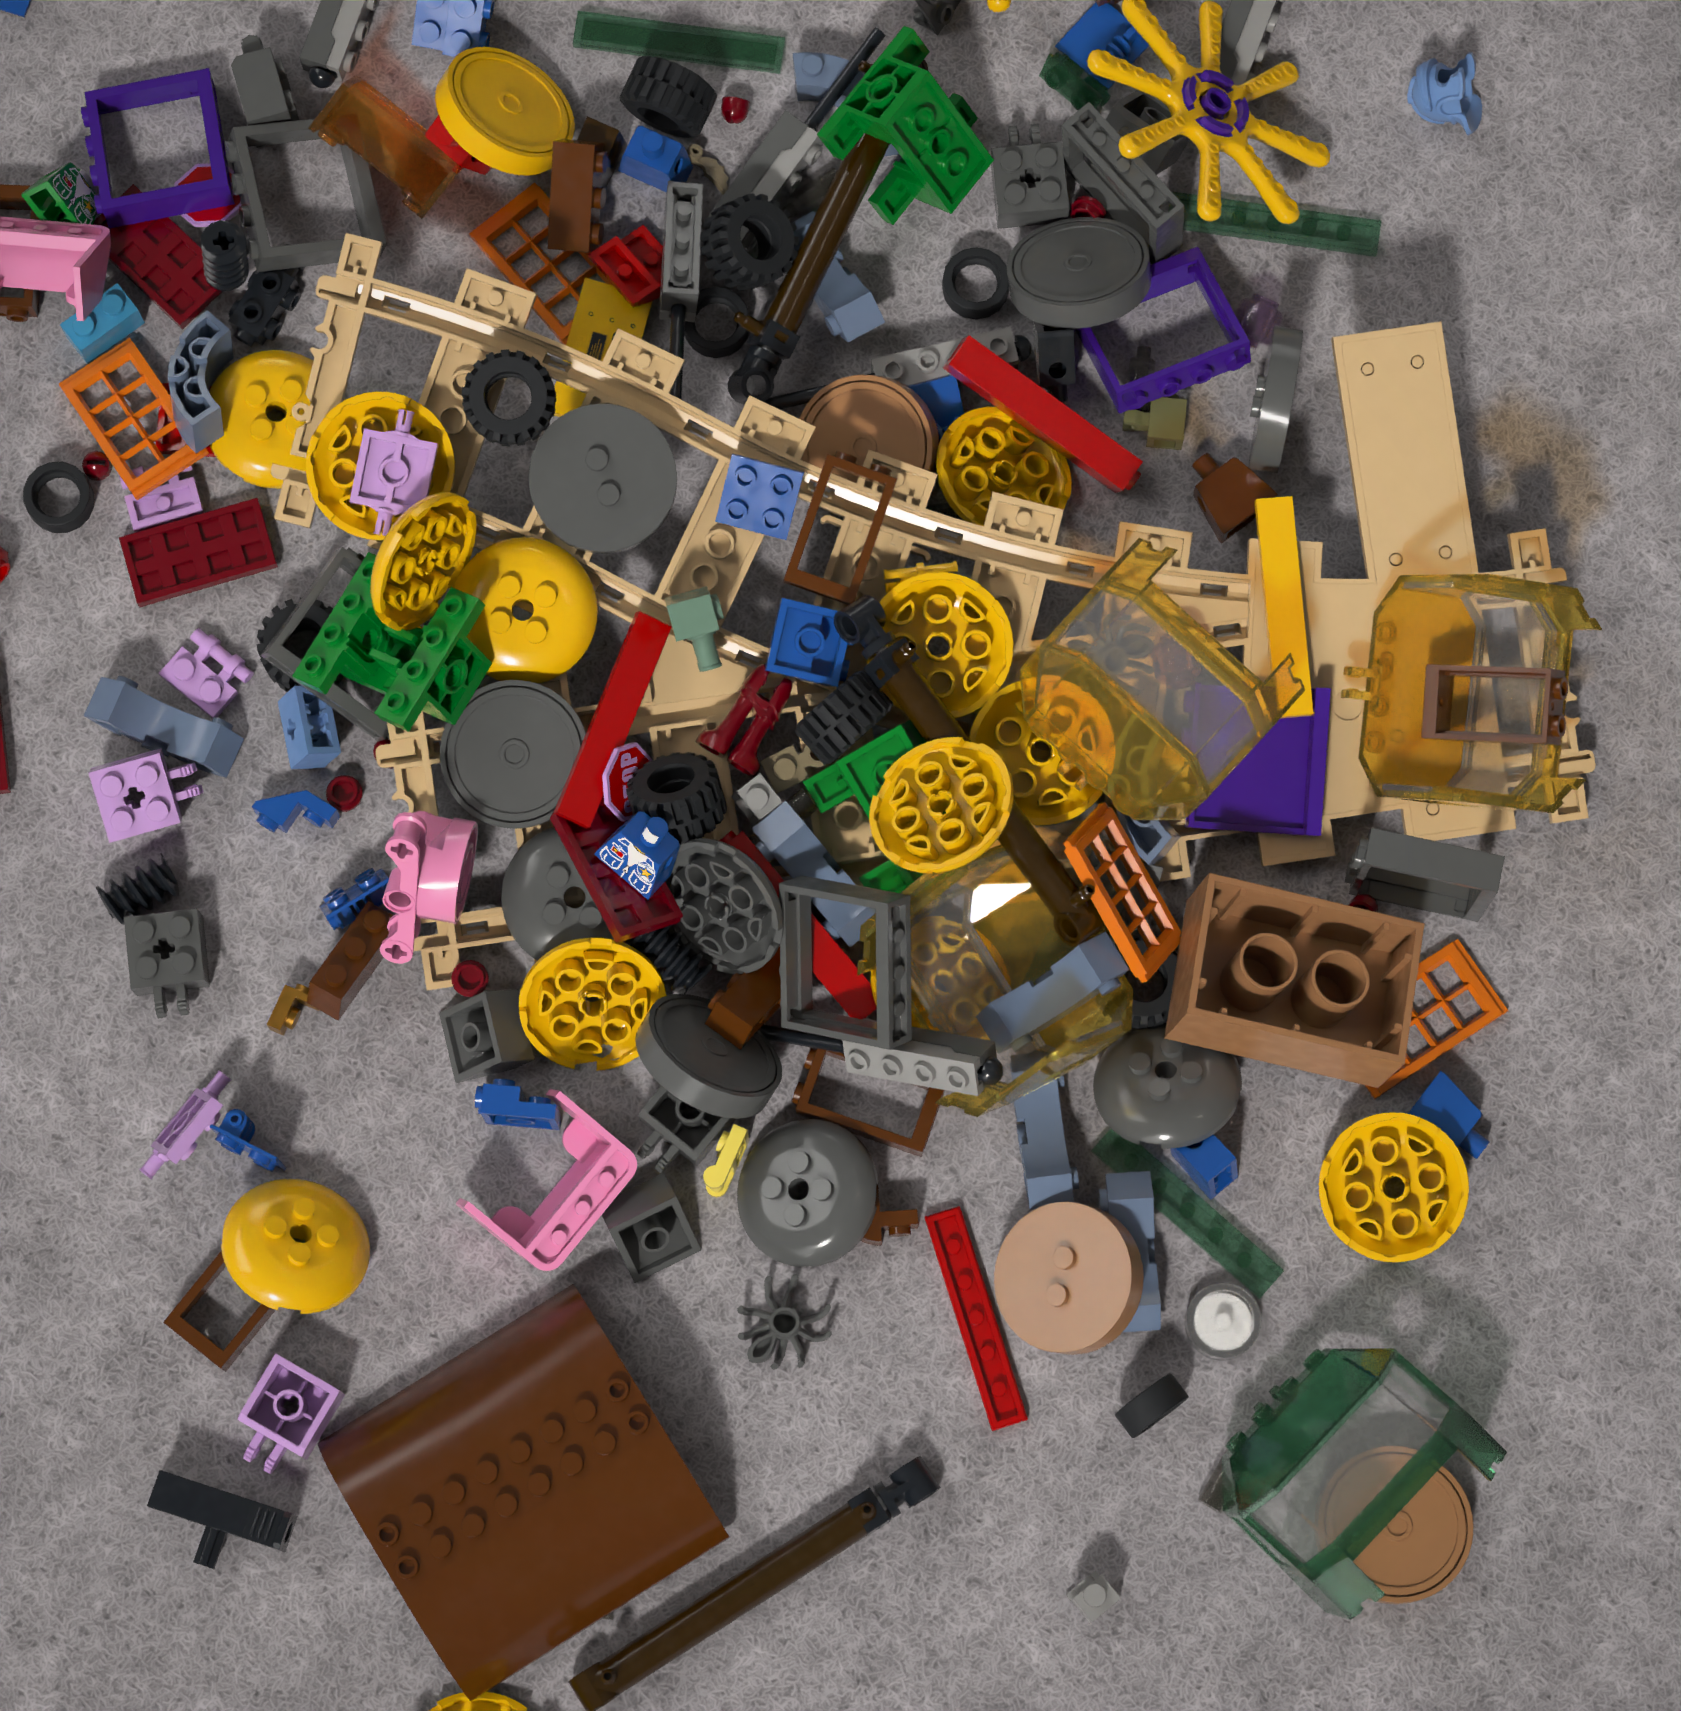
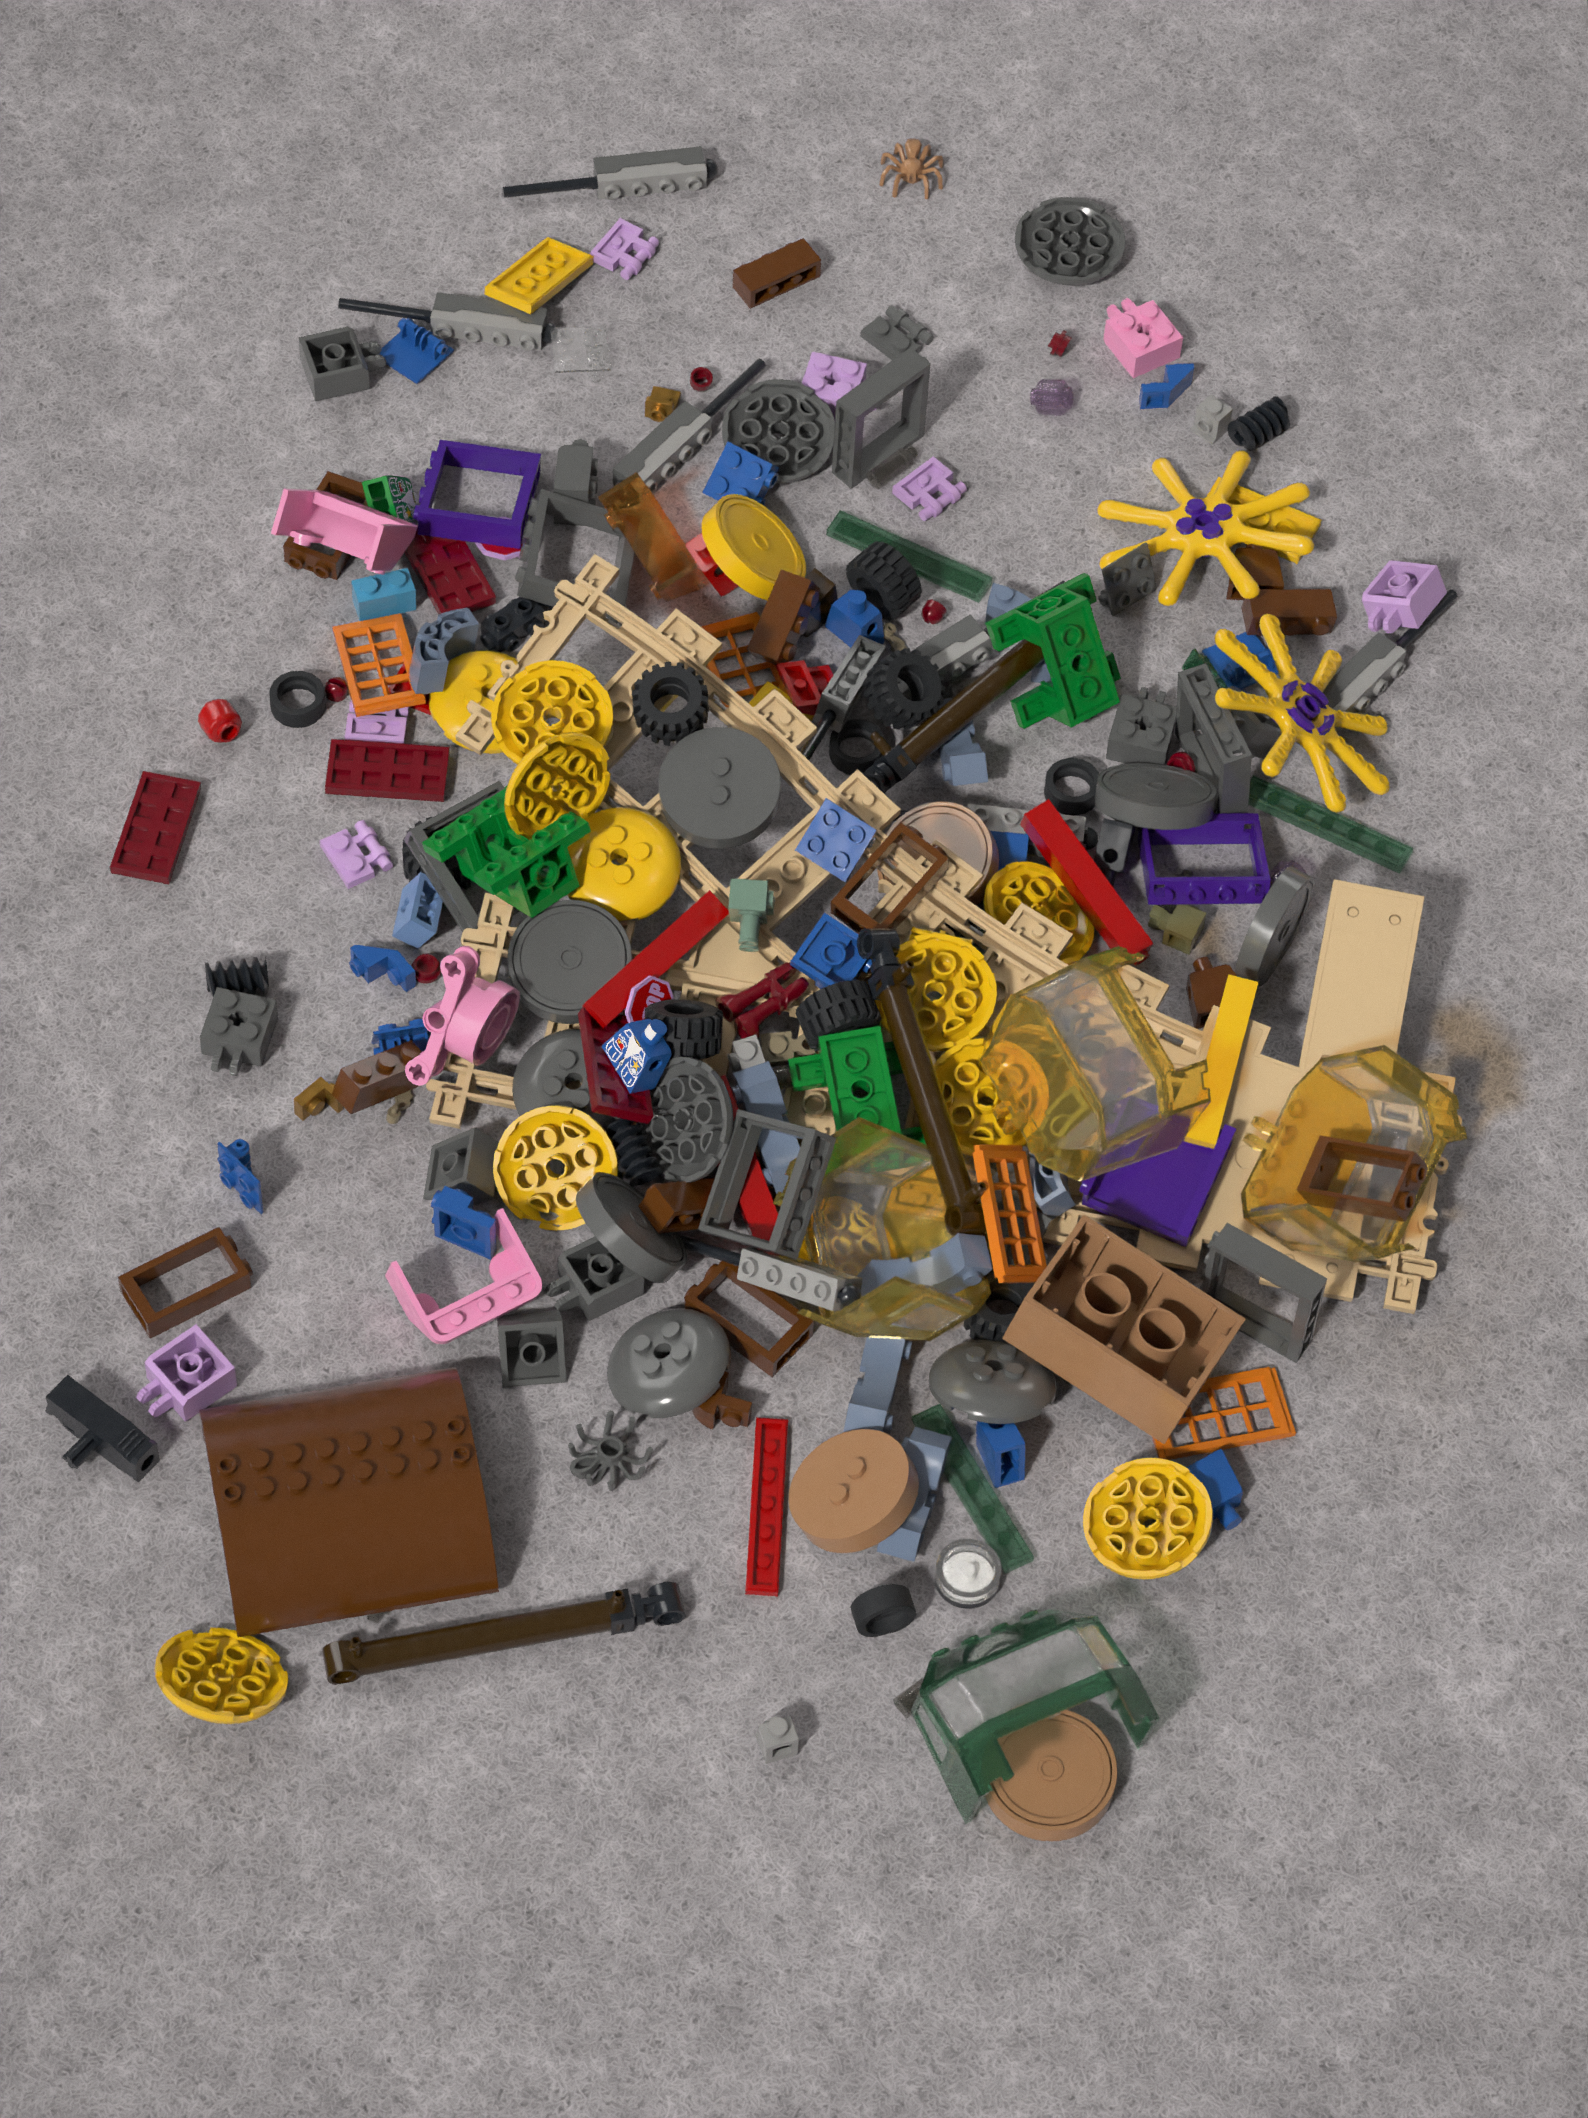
camera: 15 degrees right, 20 degrees down
(131, 713) = (305, 875): sand blue brick -> none
(149, 774) = (278, 924): lavender hinge -> none
(179, 1135) = (191, 1153): lavender plate -> none
(224, 255) = (497, 572): black piece -> none
(291, 1273) = (246, 1257): yellow brick -> none
(385, 972) = (401, 1103): none -> dark tan piece
(392, 471) = (560, 711): lavender plate -> none
(469, 978) = (466, 1117): dark red plate -> none
(730, 1152) = (619, 1310): light yellow plate -> none
(937, 777) = (888, 1084): yellow brick -> none
(1446, 93) = (1500, 775): medium blue helmet -> none

